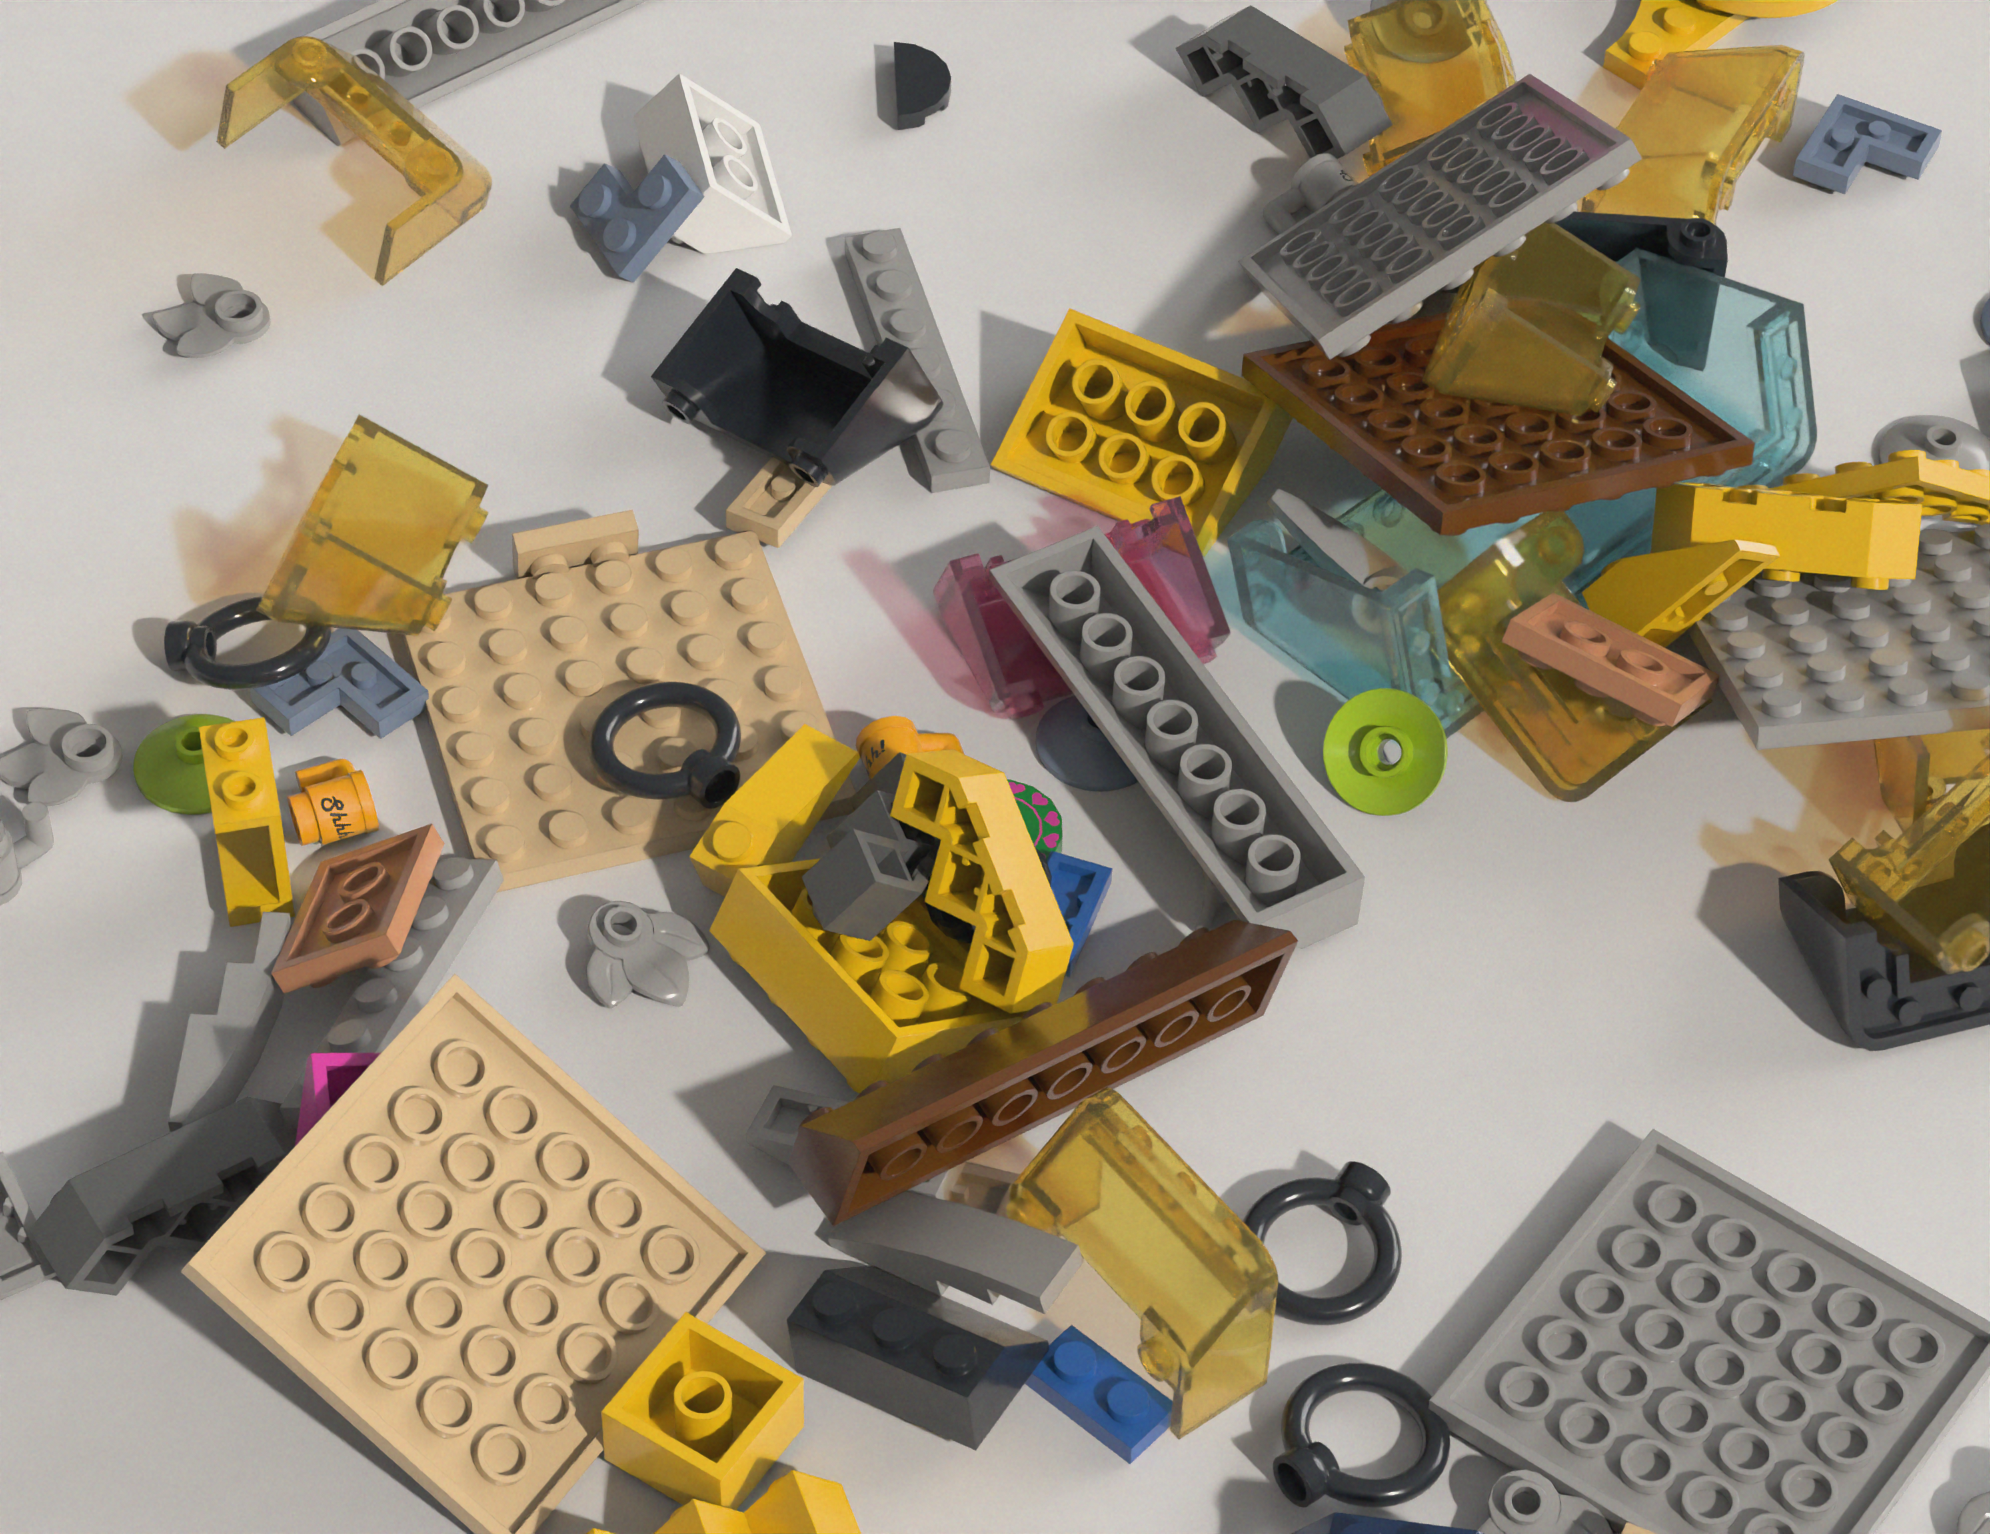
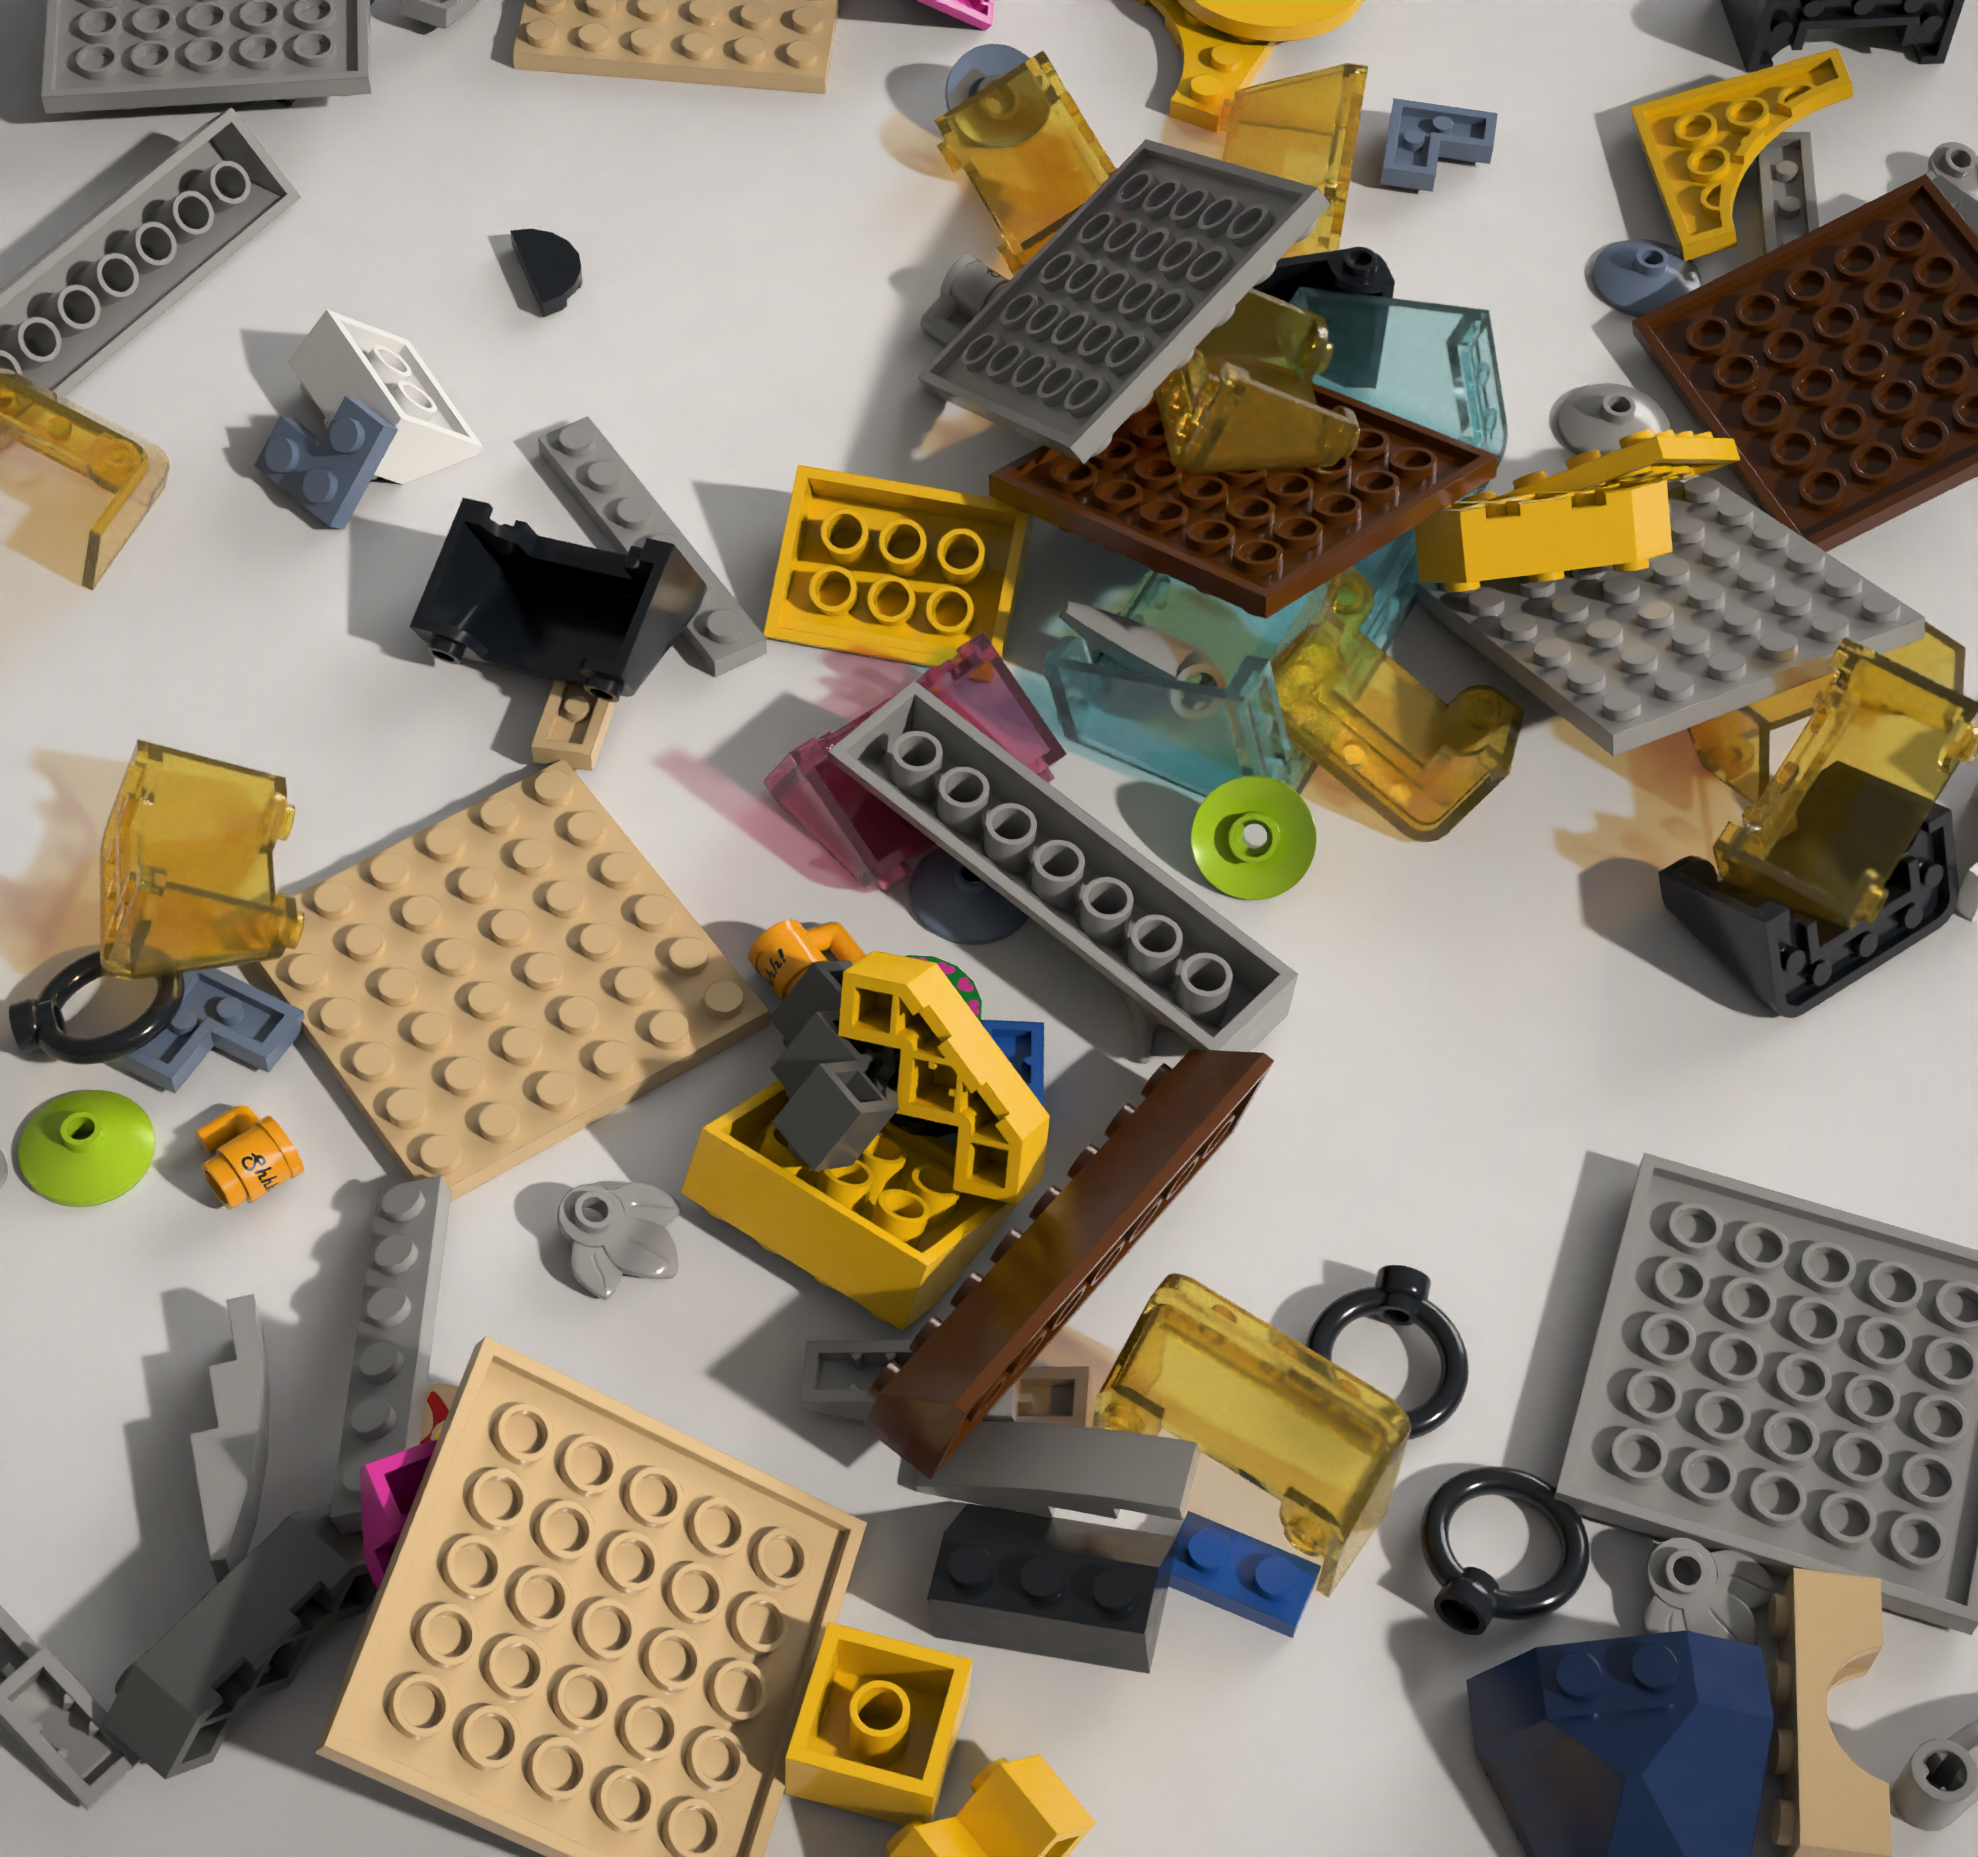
camera: 20 degrees left, 5 degrees up
(246, 820) = (177, 1207): yellow panel -> none
(358, 910) = (325, 1271): nougat plate -> none
(574, 544) = (394, 819): tan plate -> none
(704, 775) = (621, 1031): black piece -> none
(773, 808) = (702, 1053): yellow slope -> none
(1284, 79) = (900, 191): dark grey brick -> none
(1610, 660) = (1441, 699): nougat plate -> none
(1672, 589) = (1446, 625): yellow slope -> none

